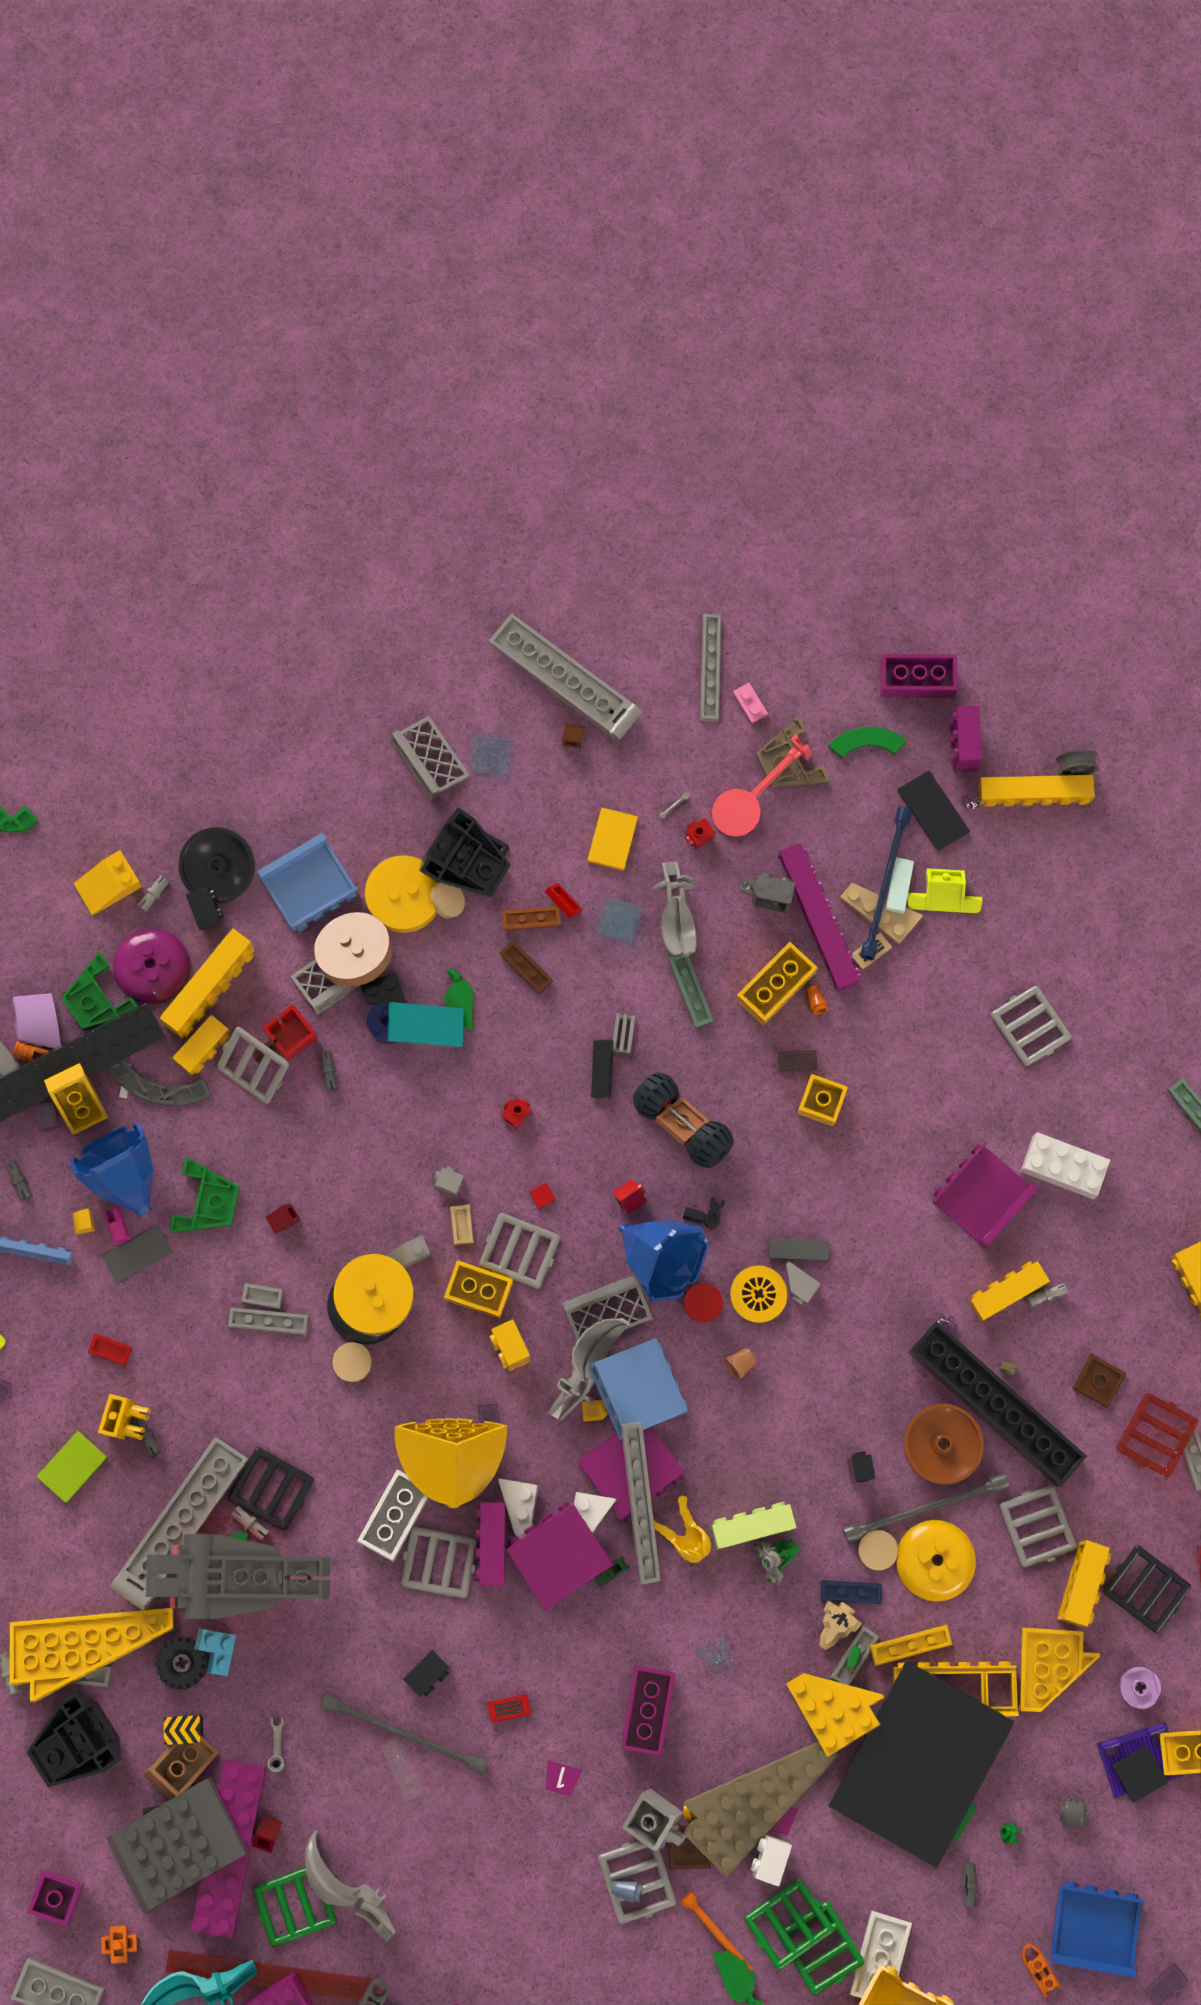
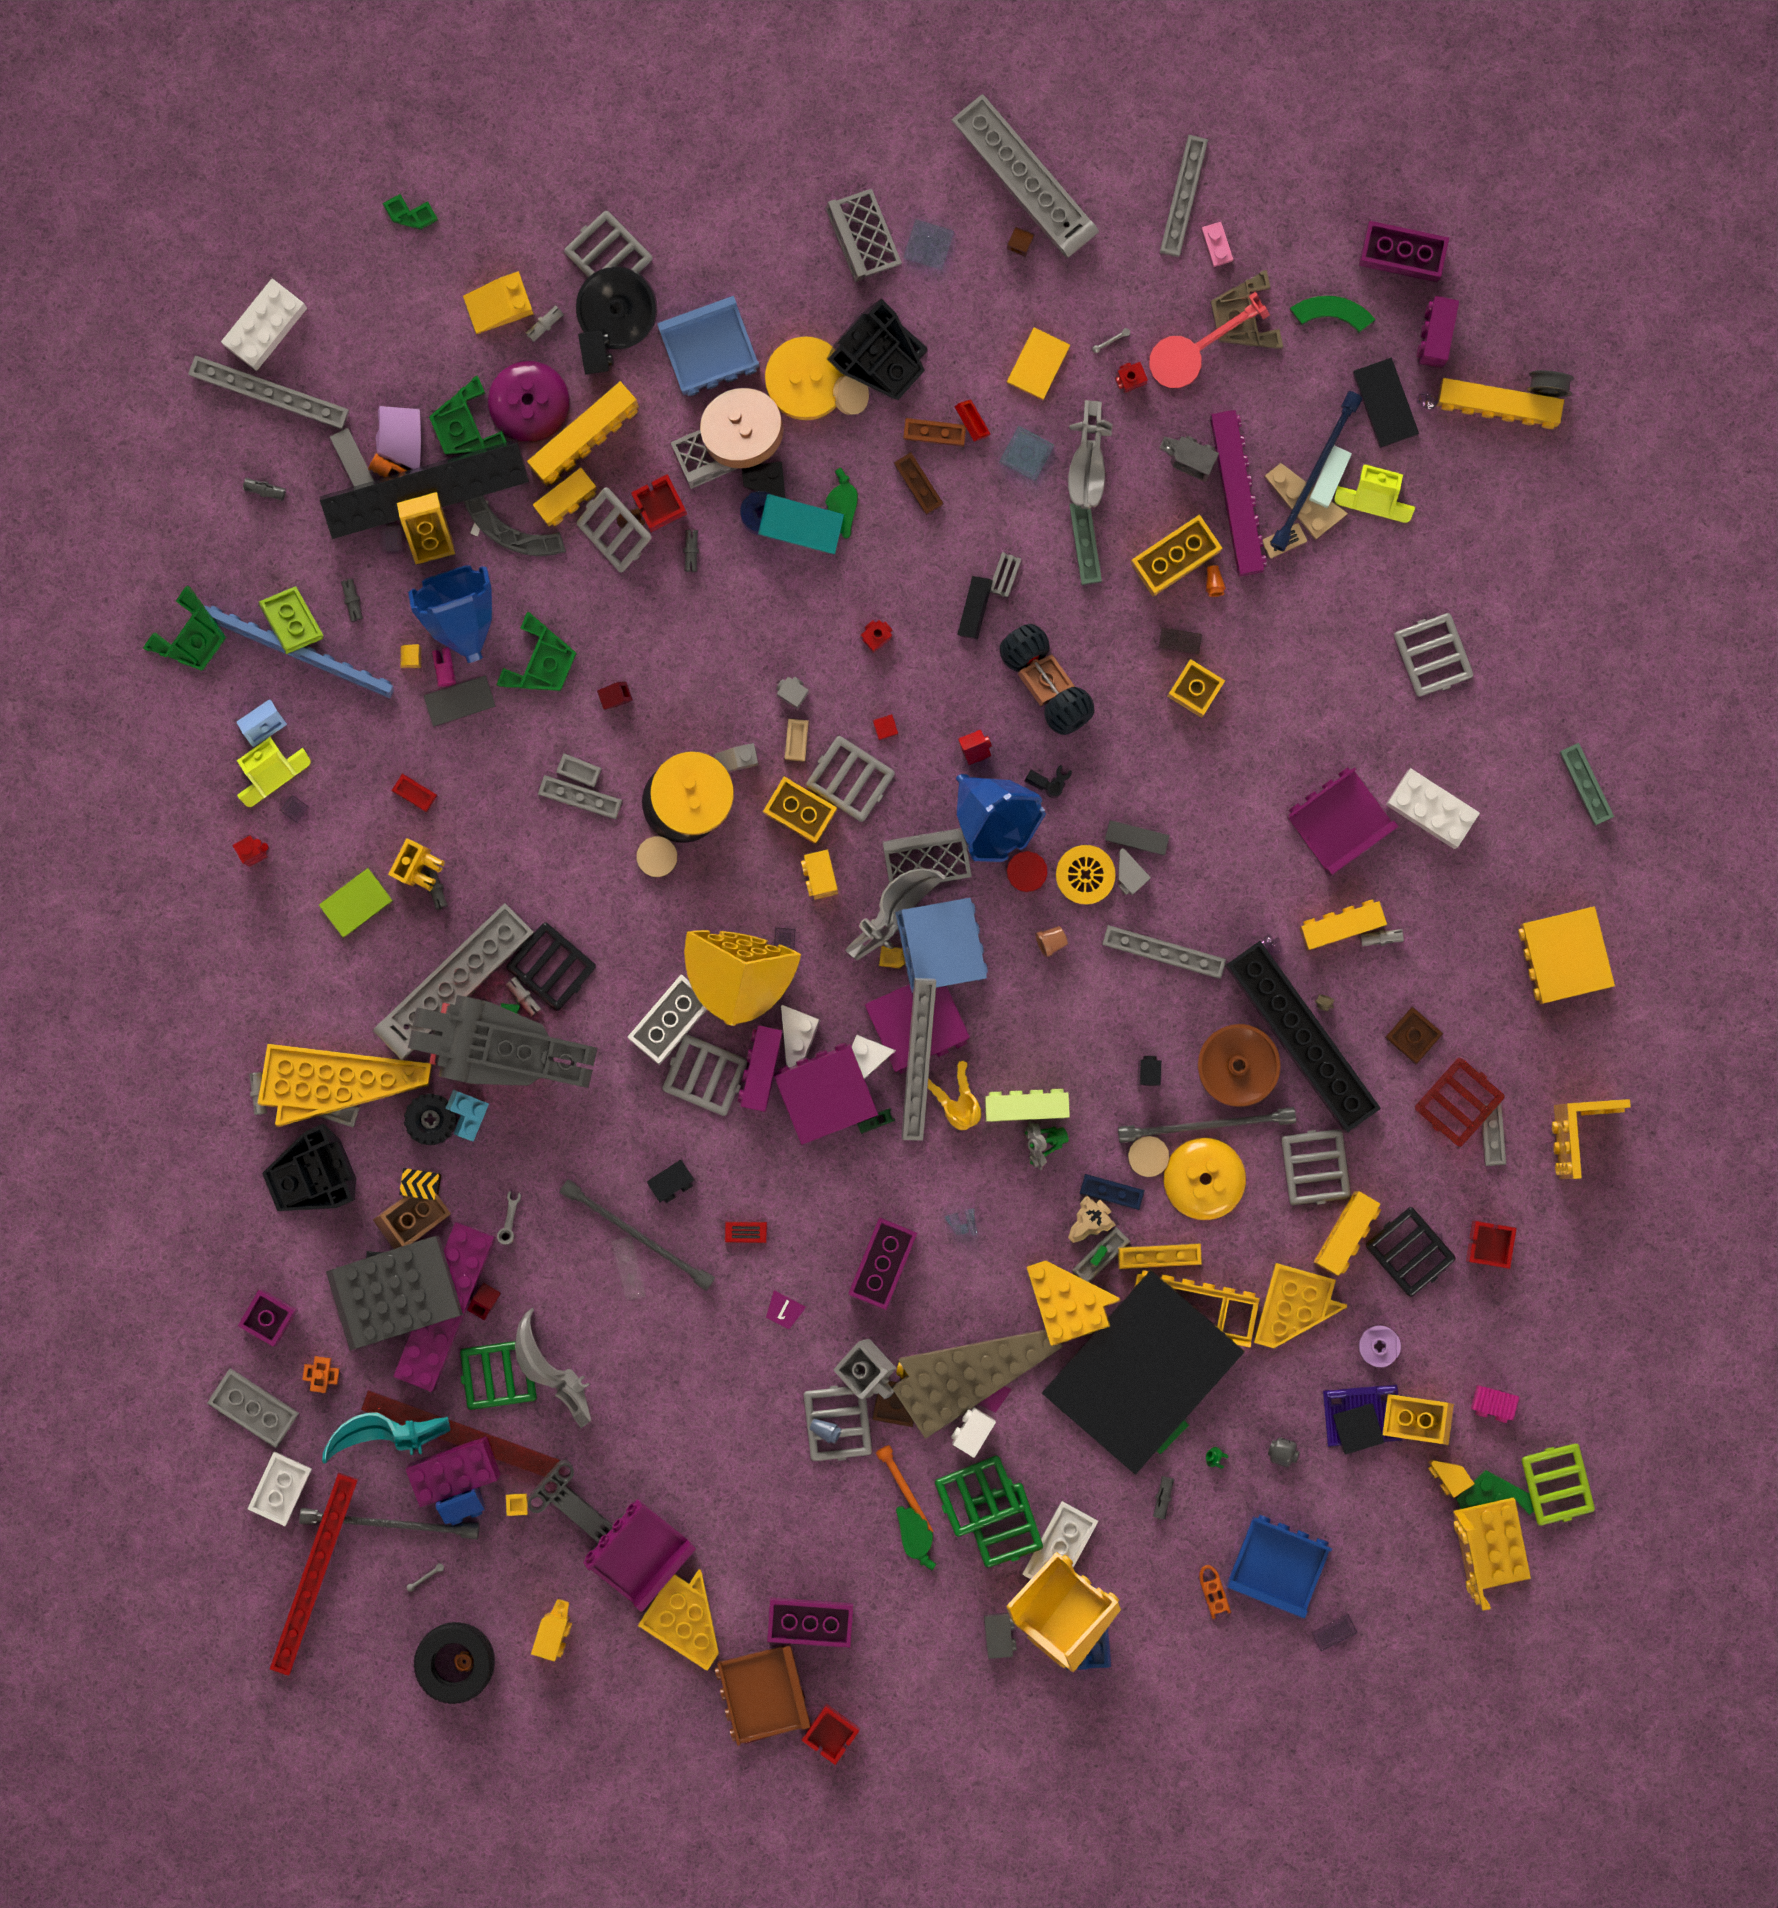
camera: 15 degrees right, 10 degrees up
(206, 796) = (618, 230): none -> light grey bar
(848, 1351) = (1164, 952): none -> light grey tile

